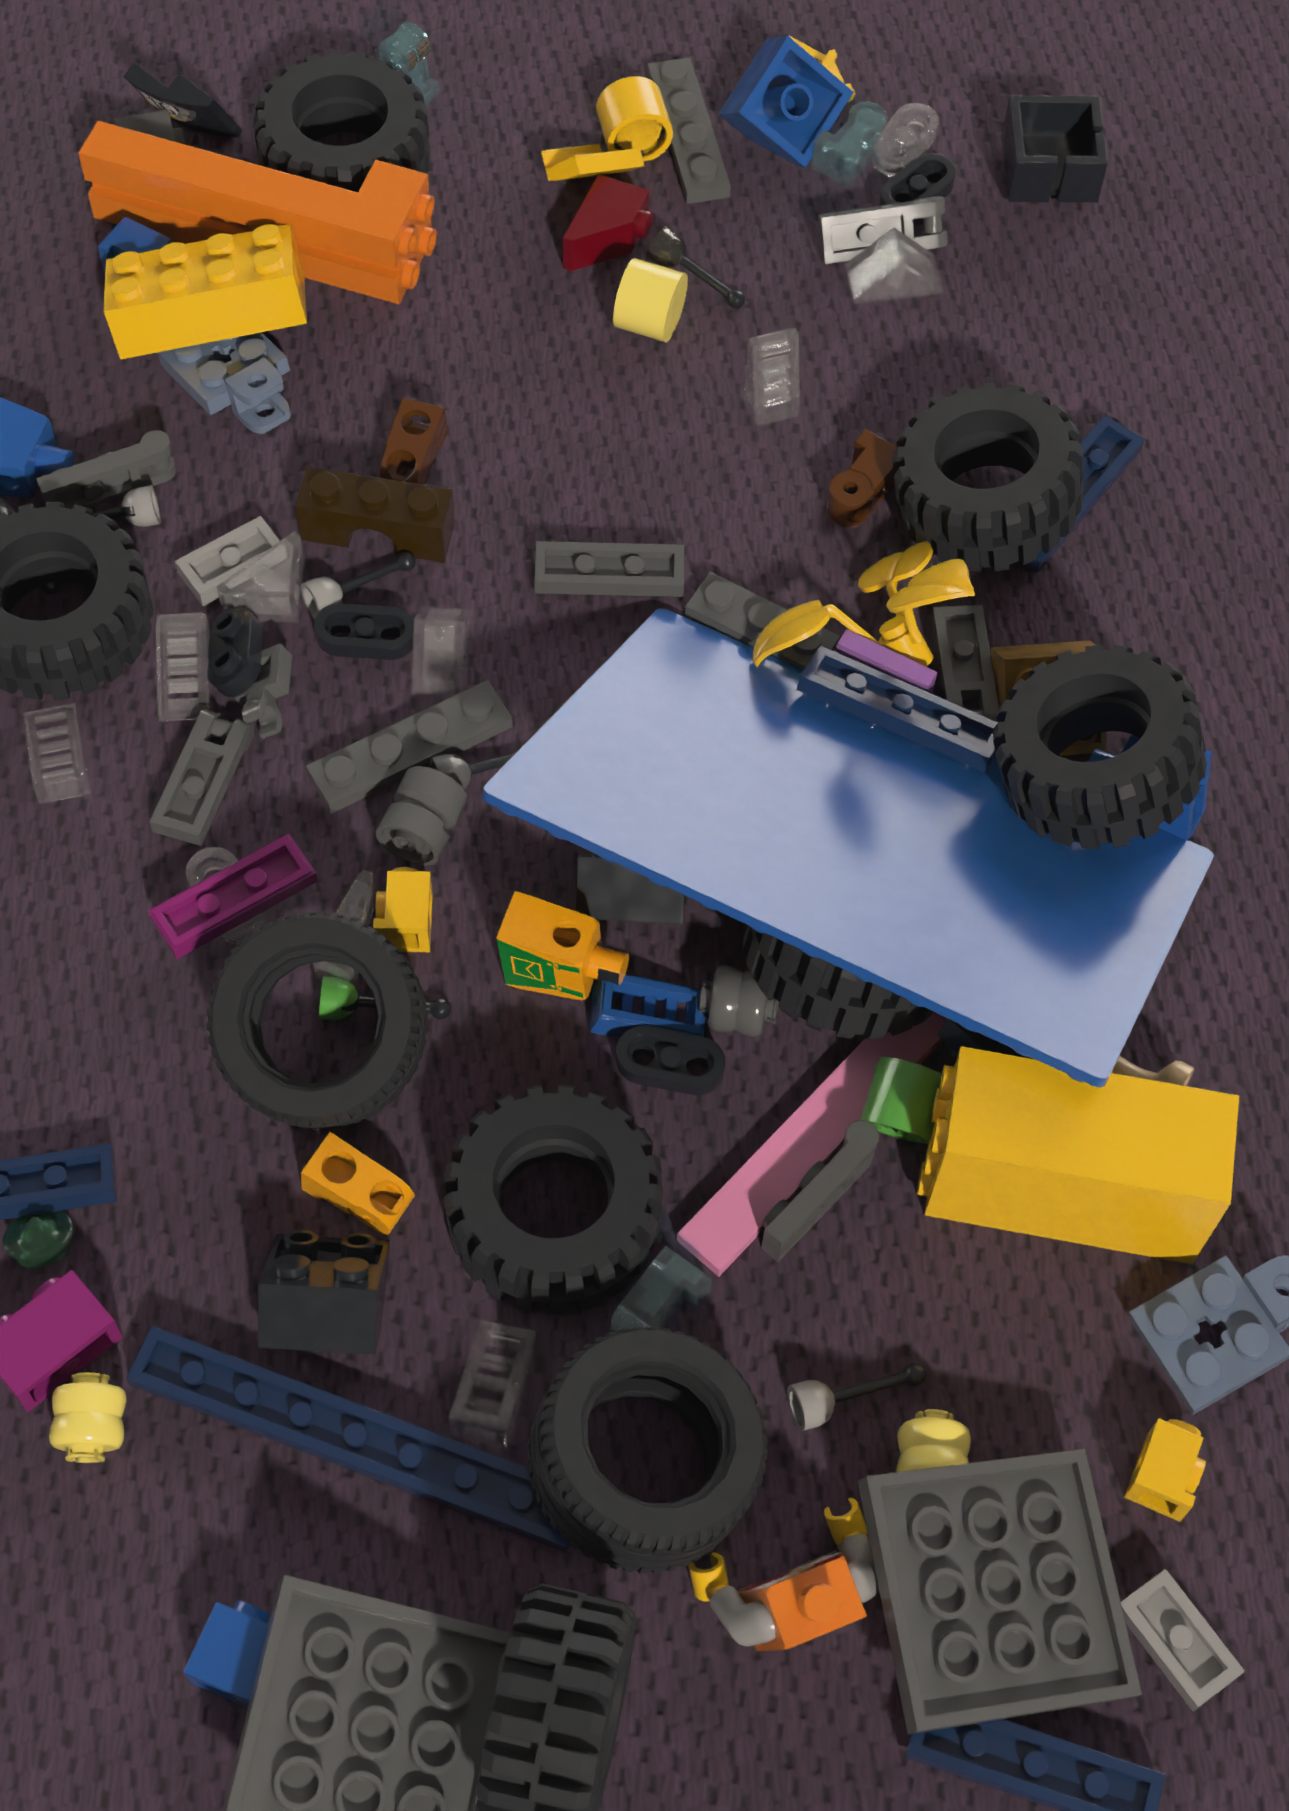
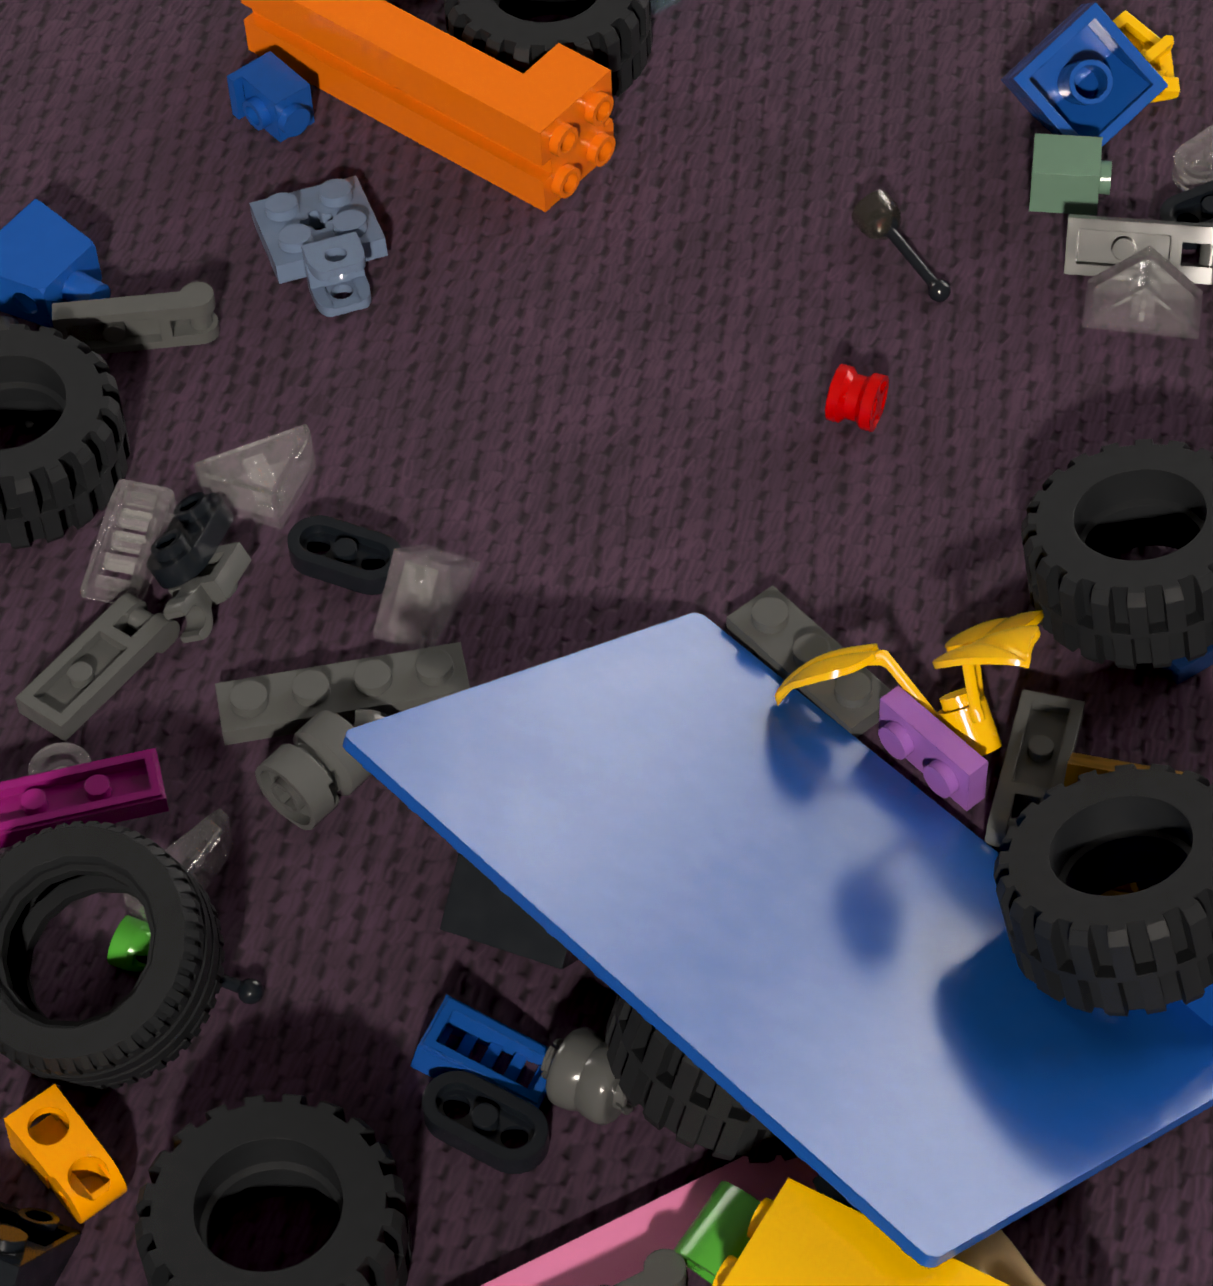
camera: 25 degrees right, 10 degrees down
(138, 508) = (157, 363): light grey hinge -> none
(204, 291) = (321, 146): yellow brick -> none
(223, 557) = (222, 433): light grey plate -> none
(326, 591) = (321, 499): hinge -> none
(406, 909) = (253, 871): yellow brick -> none
(410, 514) = (449, 440): dark brown arch -> none
(413, 444) = (485, 366): reddish brown leg -> none
(555, 949) = (393, 953): light orange torso -> none
(589, 161) = (821, 100): yellow slope -> none
(607, 223) = (815, 173): dark red slope -> none
(609, 569) = (655, 554): dark grey plate -> none
(634, 117) = (895, 65): yellow piece -> none
(650, 300) = (827, 266): light yellow piece -> none
(693, 140) = (962, 93): dark grey plate -> none
(713, 402) = (856, 397): none -> red wheel
(773, 382) = (934, 383): clear slope -> none
(799, 181) = (1068, 174): none -> sand green brick
(851, 148) = (1148, 148): clear light blue leg -> none
(867, 482) = (990, 536): reddish brown leg -> none
(899, 708) = (915, 784): dark blue plate -> none

